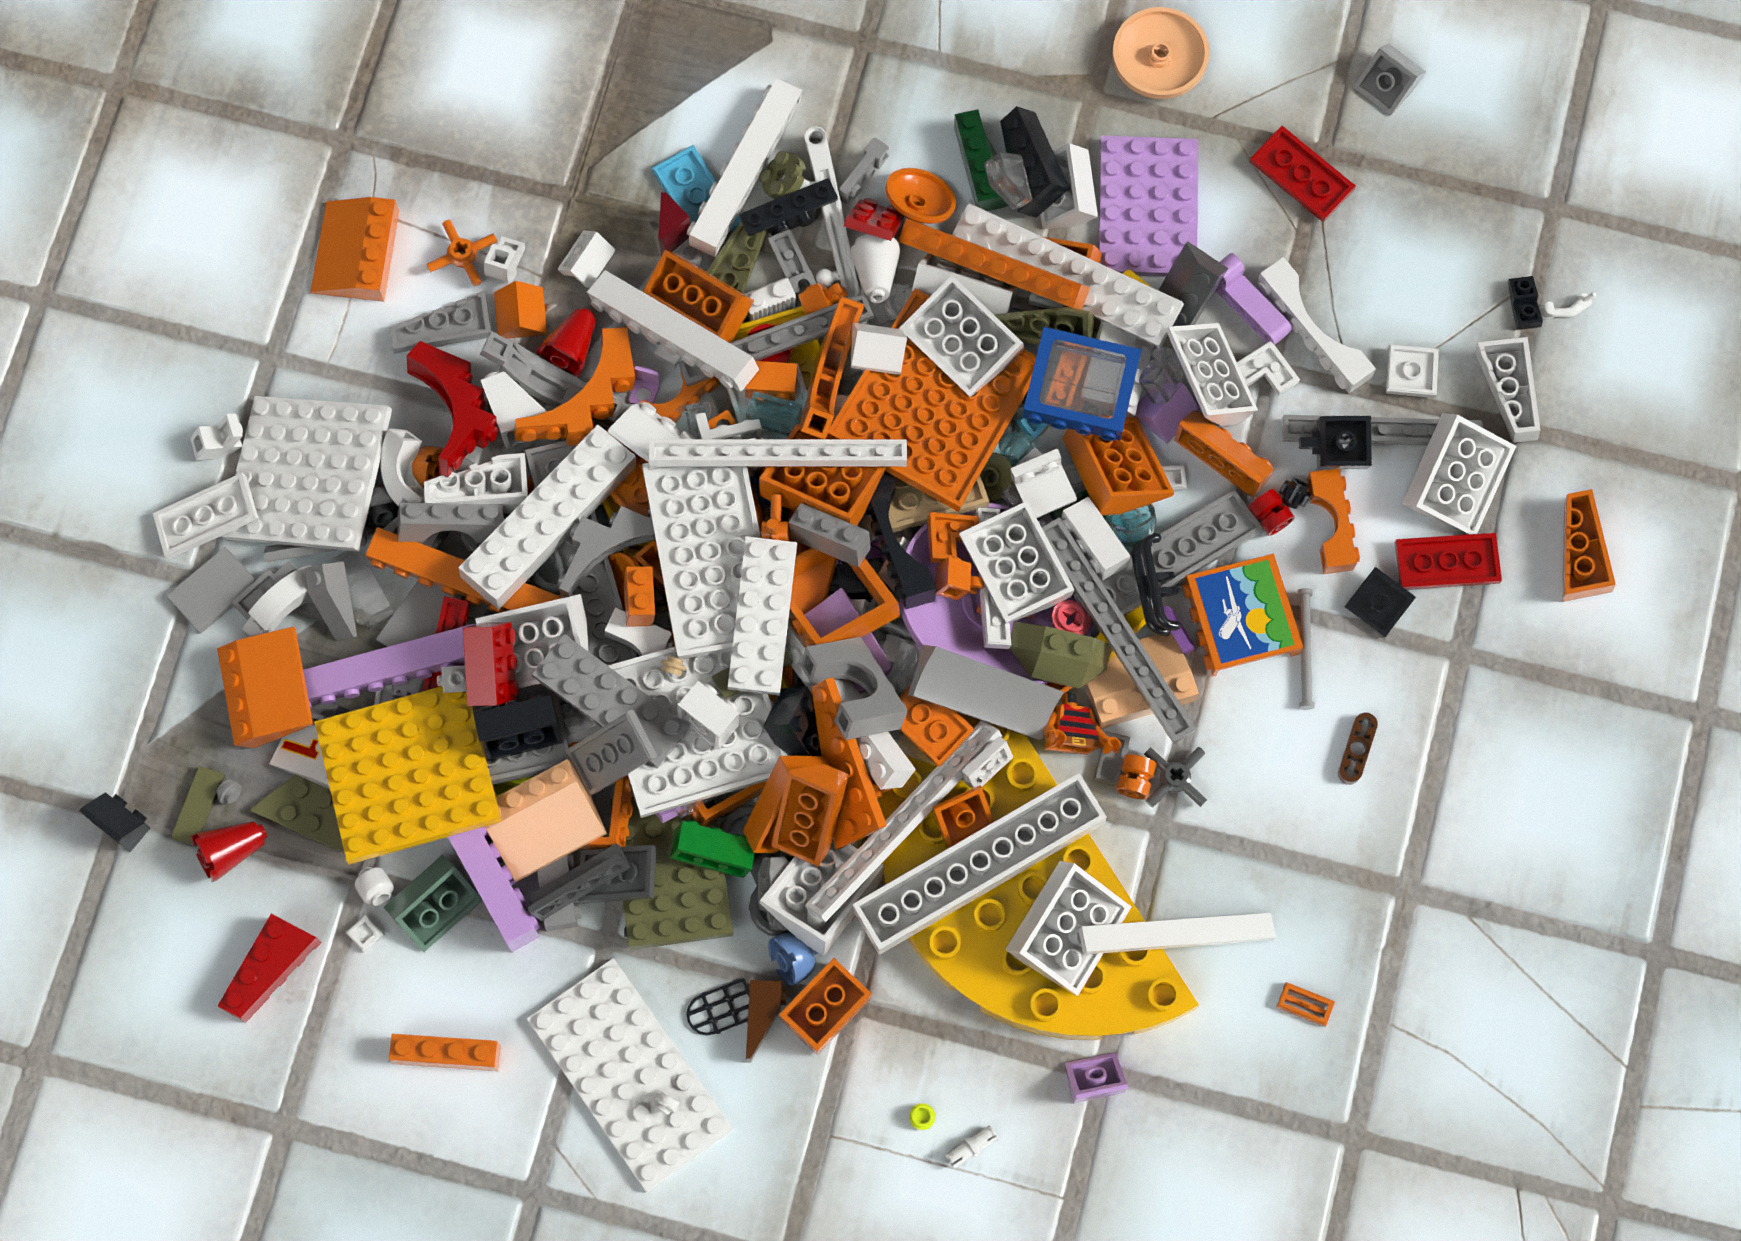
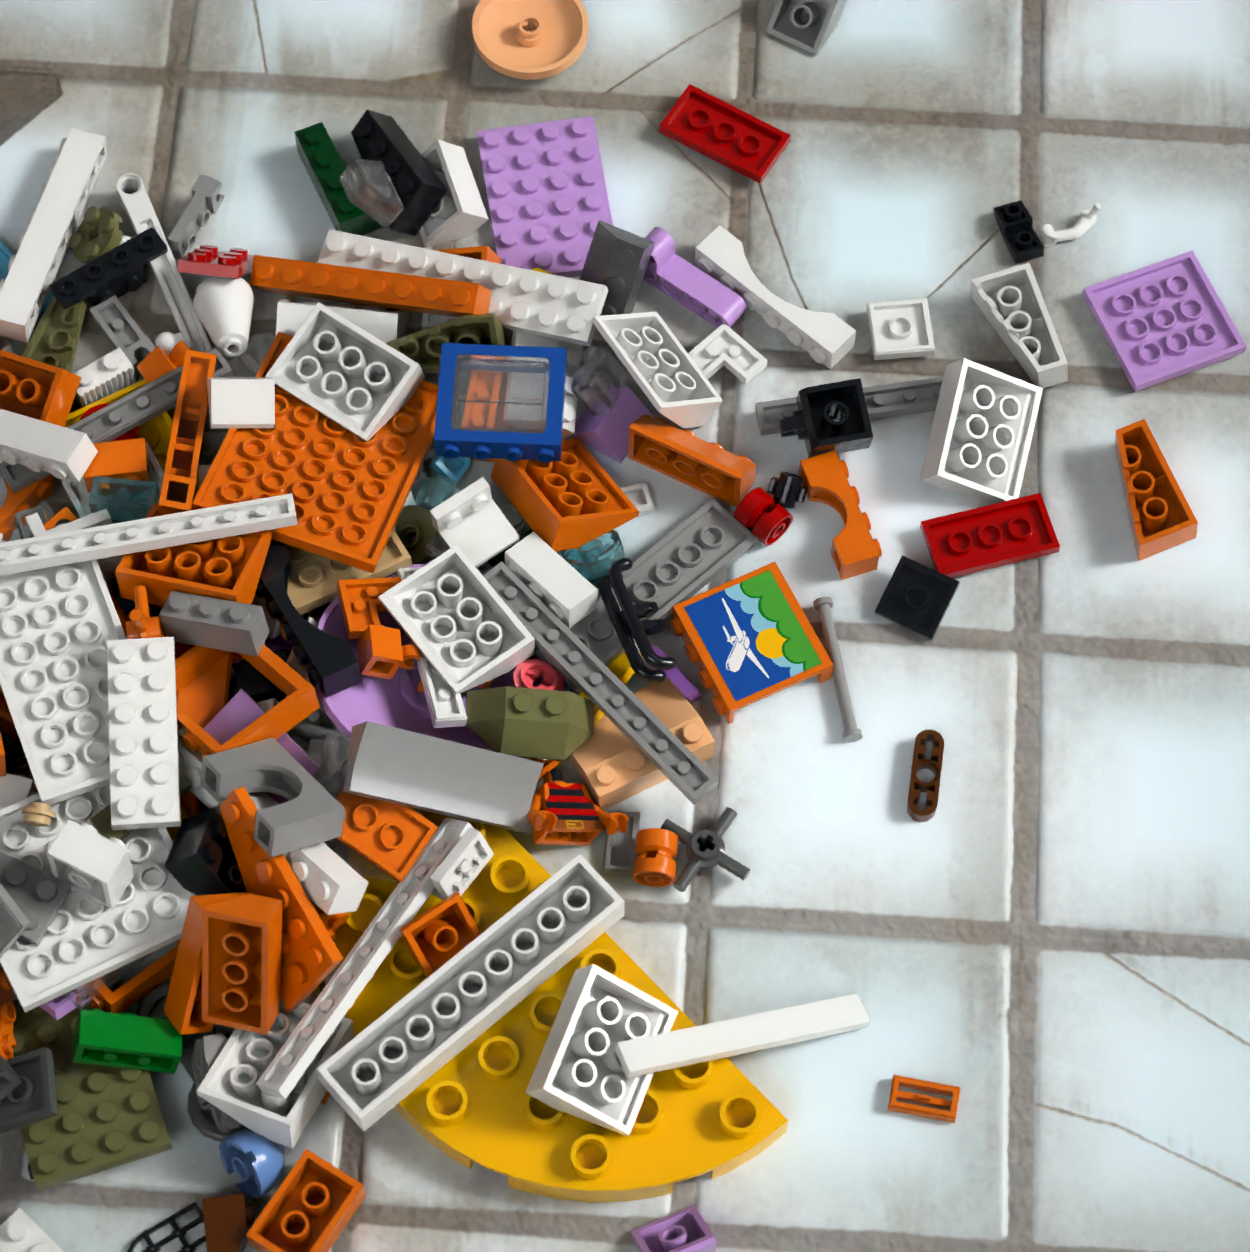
camera: 10 degrees left, 10 degrees down
(920, 195) = (268, 230): orange dish -> none
(1626, 402) = (1164, 320): none -> lavender plate

